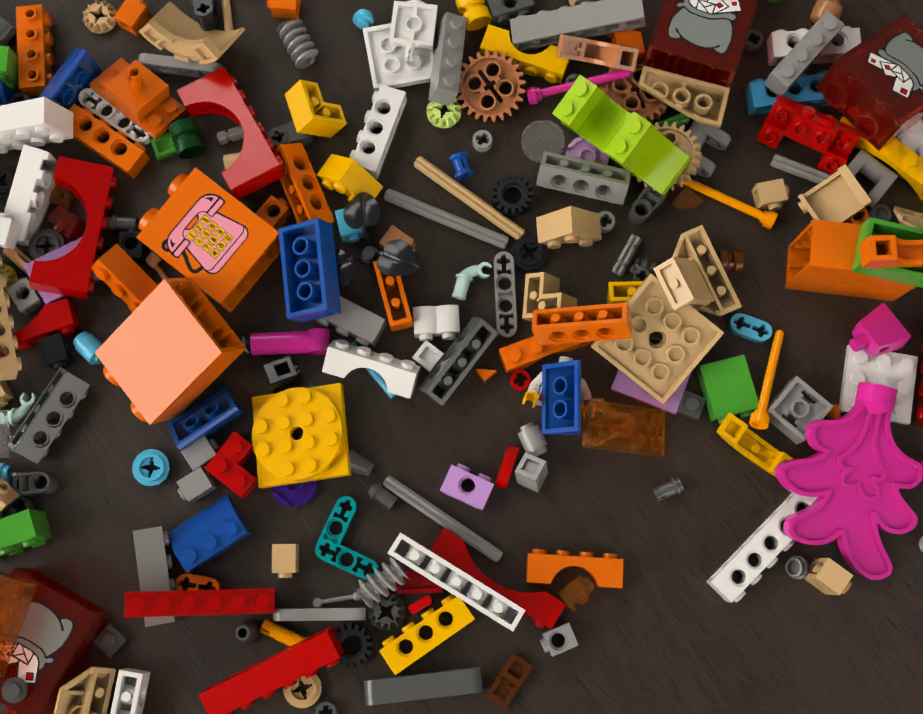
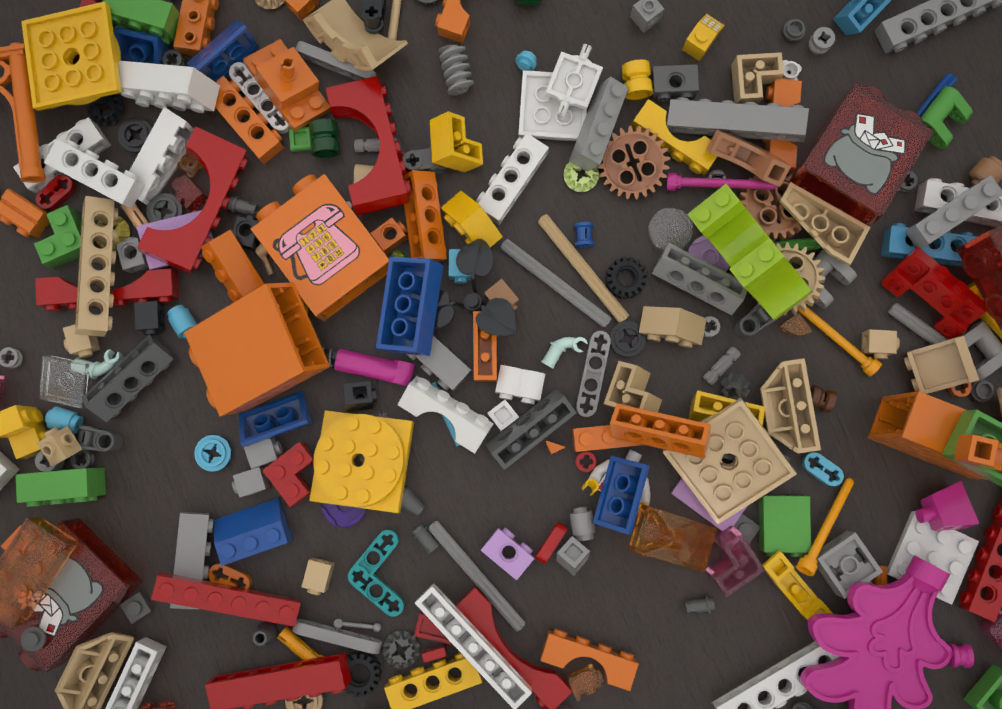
camera: 15 degrees right, 5 degrees up
(381, 582) = (402, 625): light grey piece -> none
(479, 135) = (610, 207): light grey bush -> none
(683, 283) = (770, 416): tan panel -> none
(693, 438) = (738, 563): none -> clear pink brick

